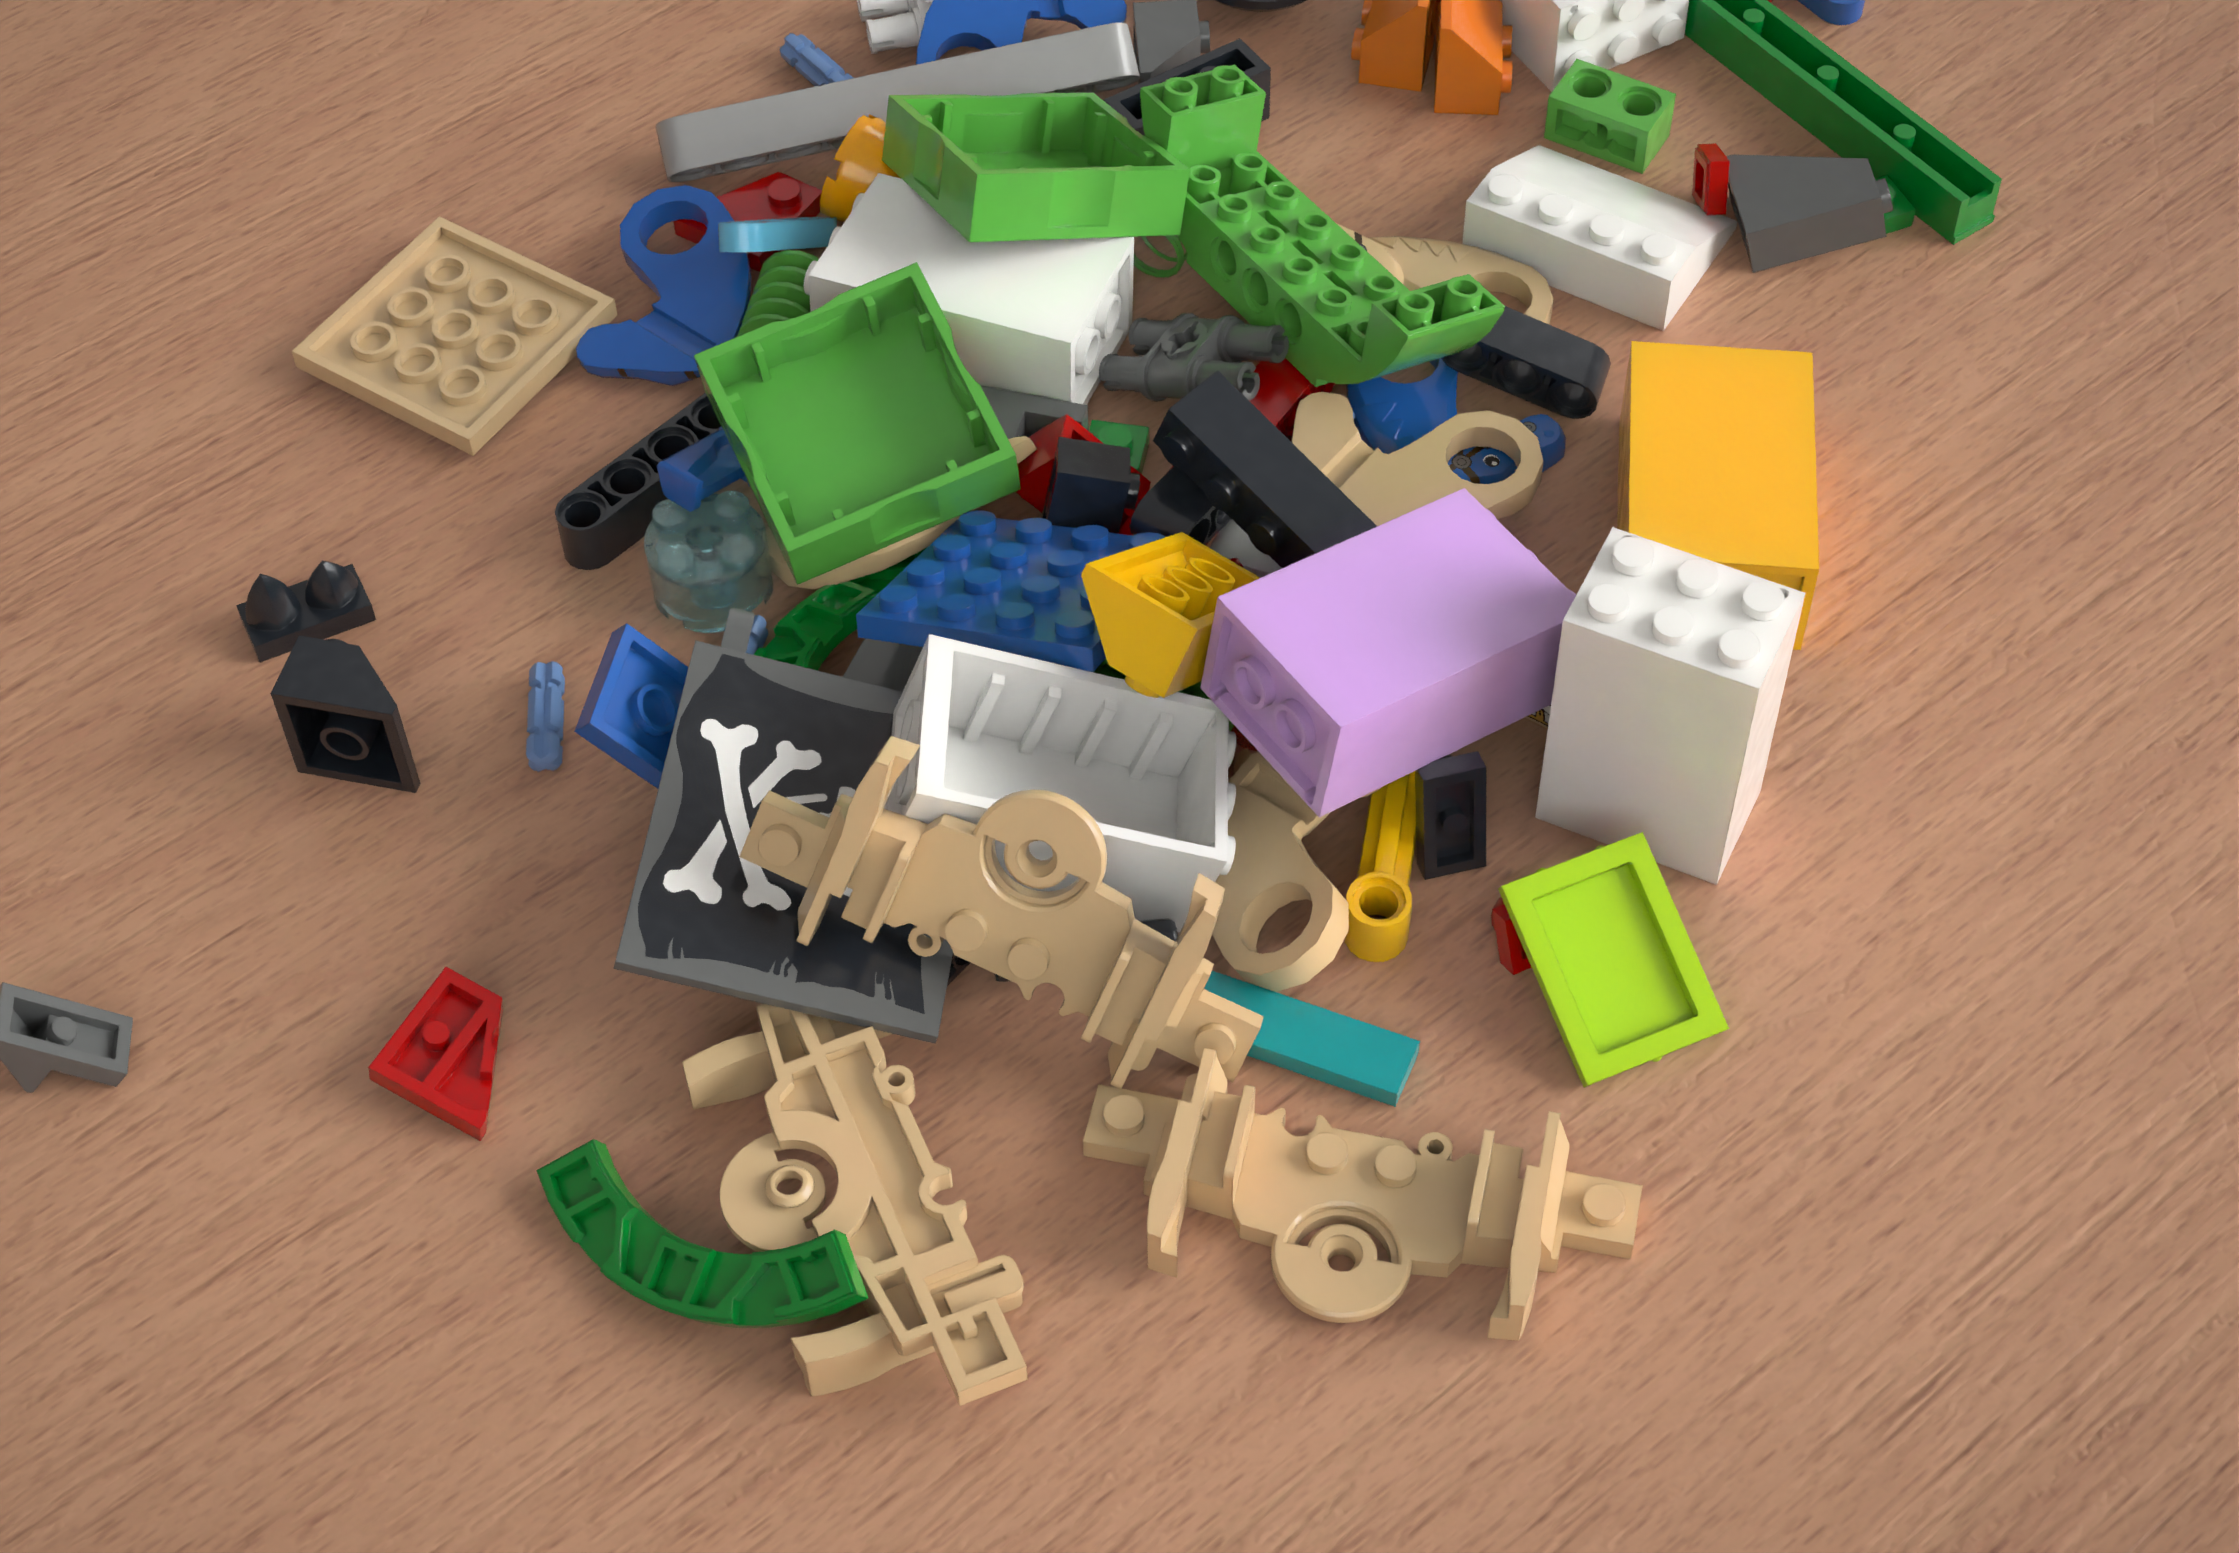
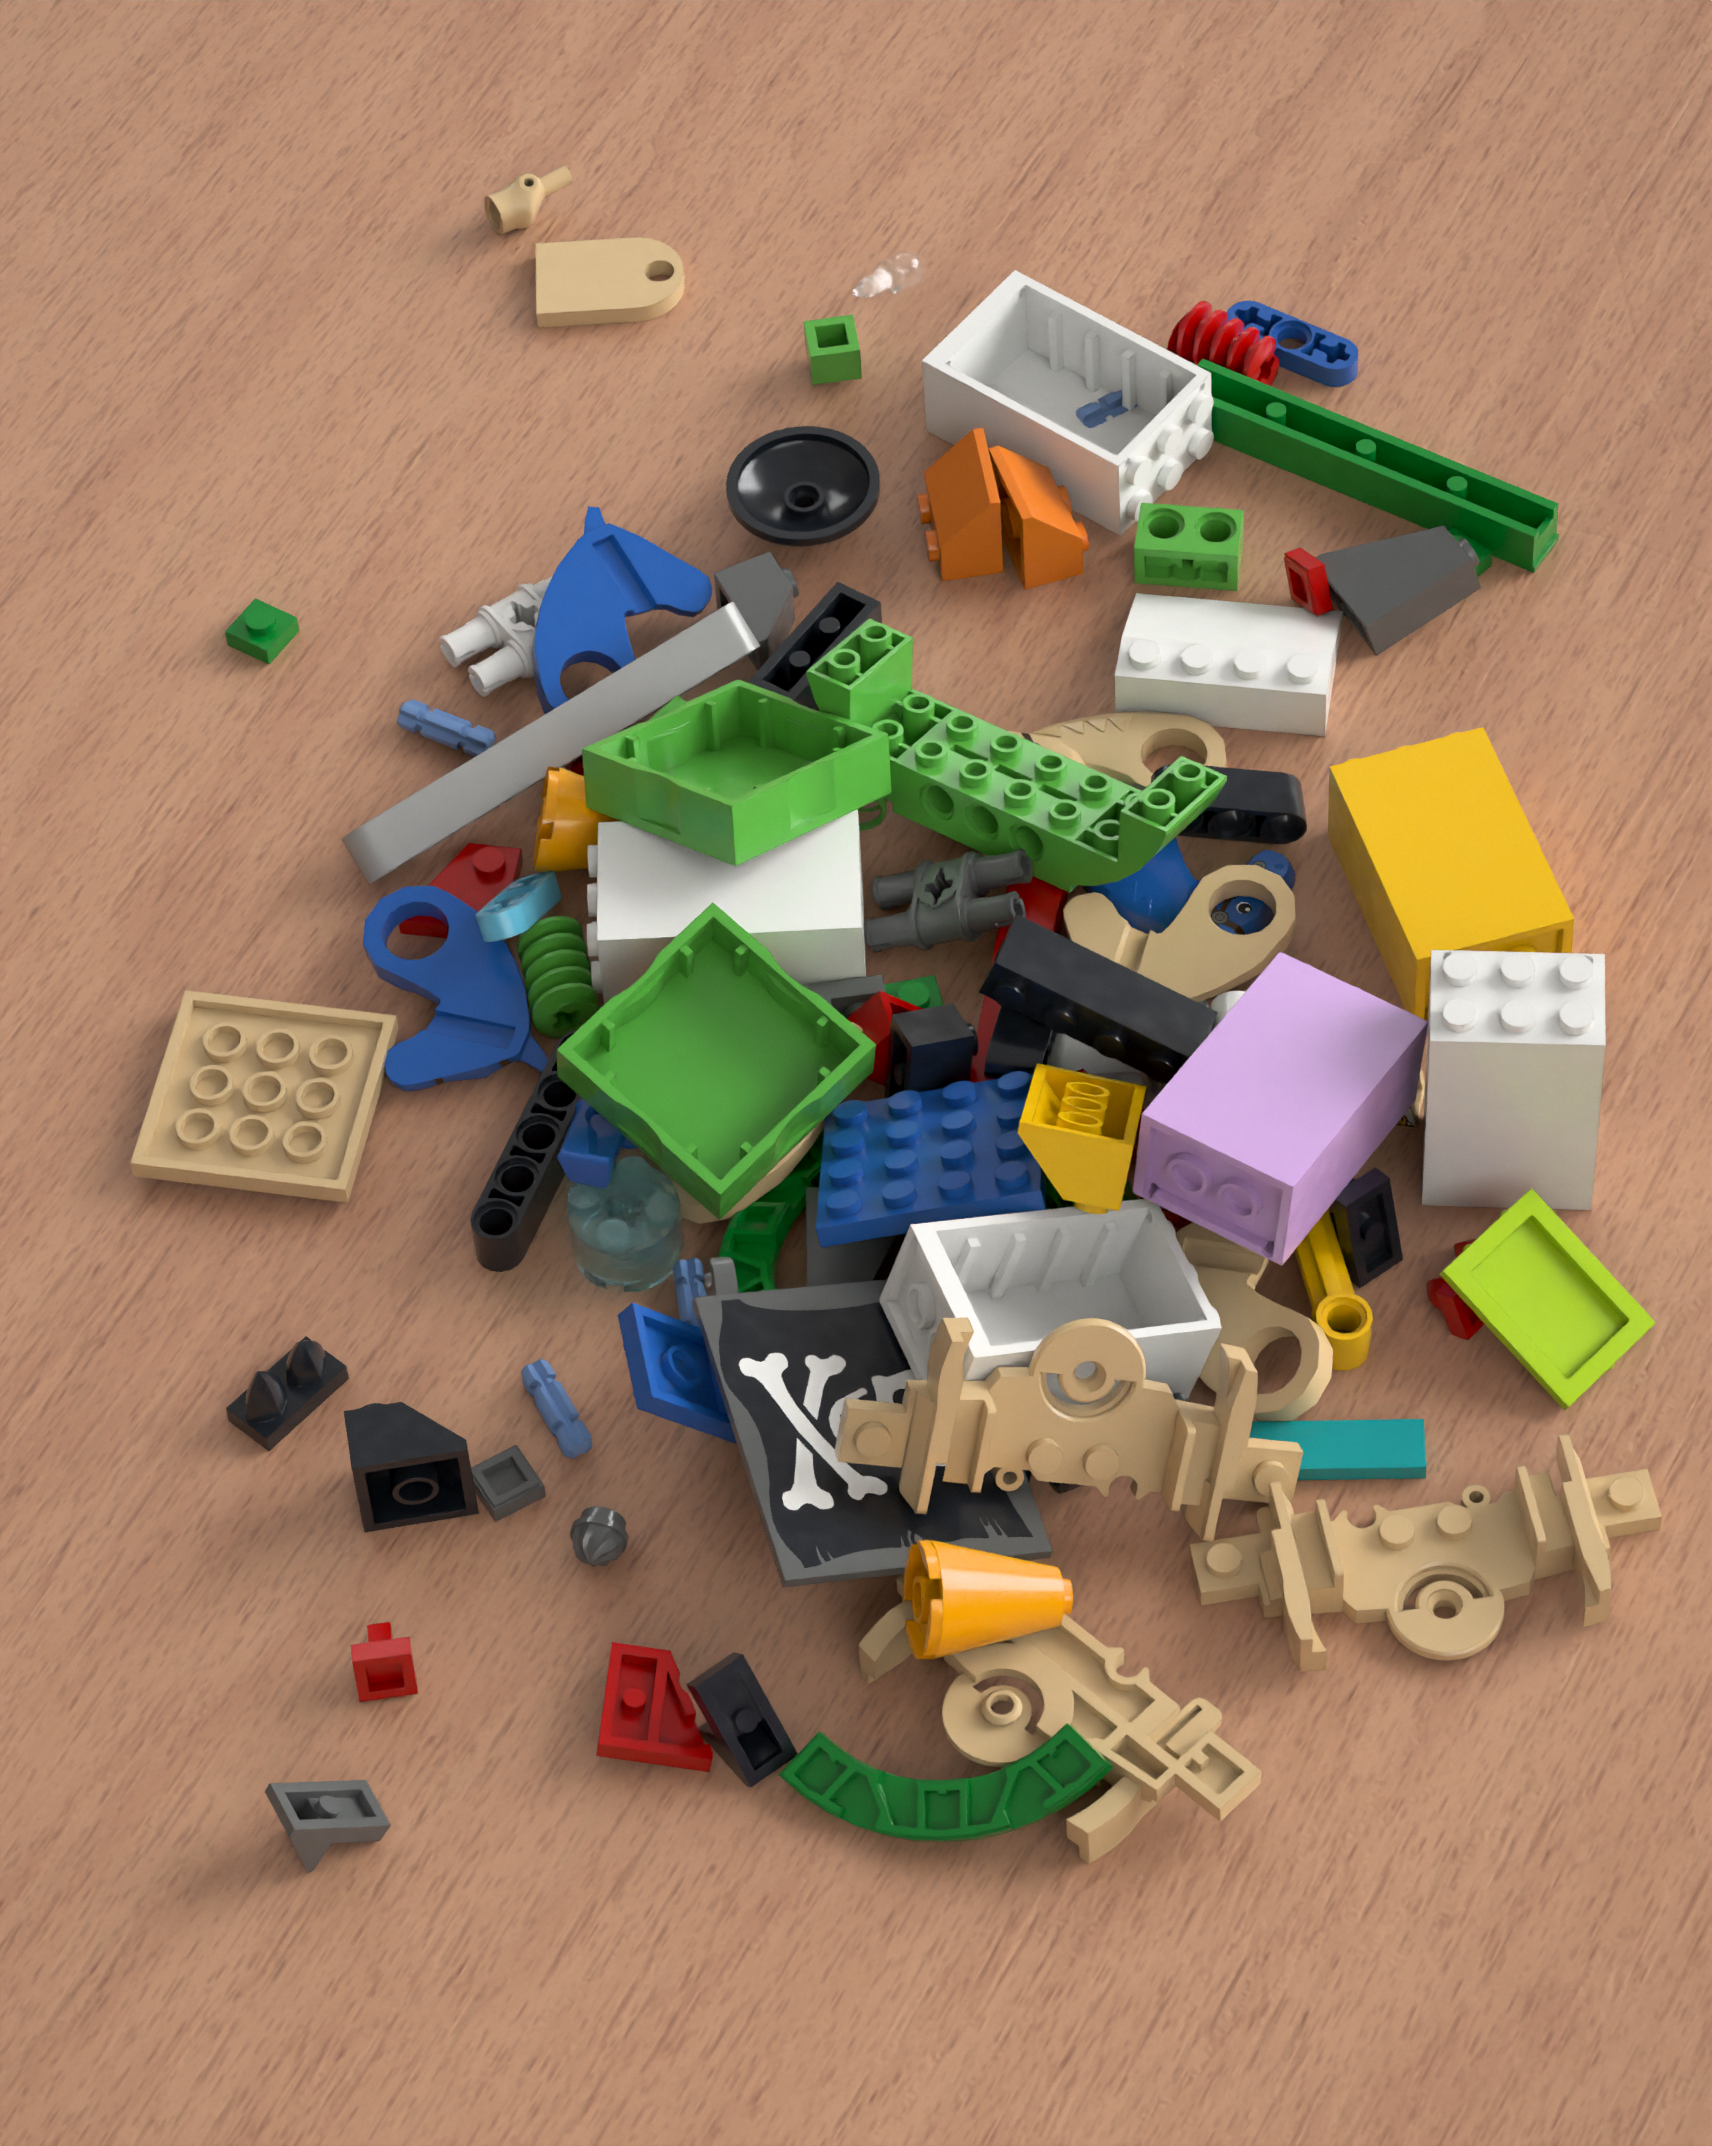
camera: 20 degrees left, 0 degrees up
(218, 906) = (383, 1665): none -> red tile
(455, 771) = (506, 1483): none -> dark grey tile
(505, 856) = (599, 1536): none -> dark grey plate
(526, 1096) = (740, 1720): none -> black slope
(812, 1057) = (977, 1598): none -> light orange cone

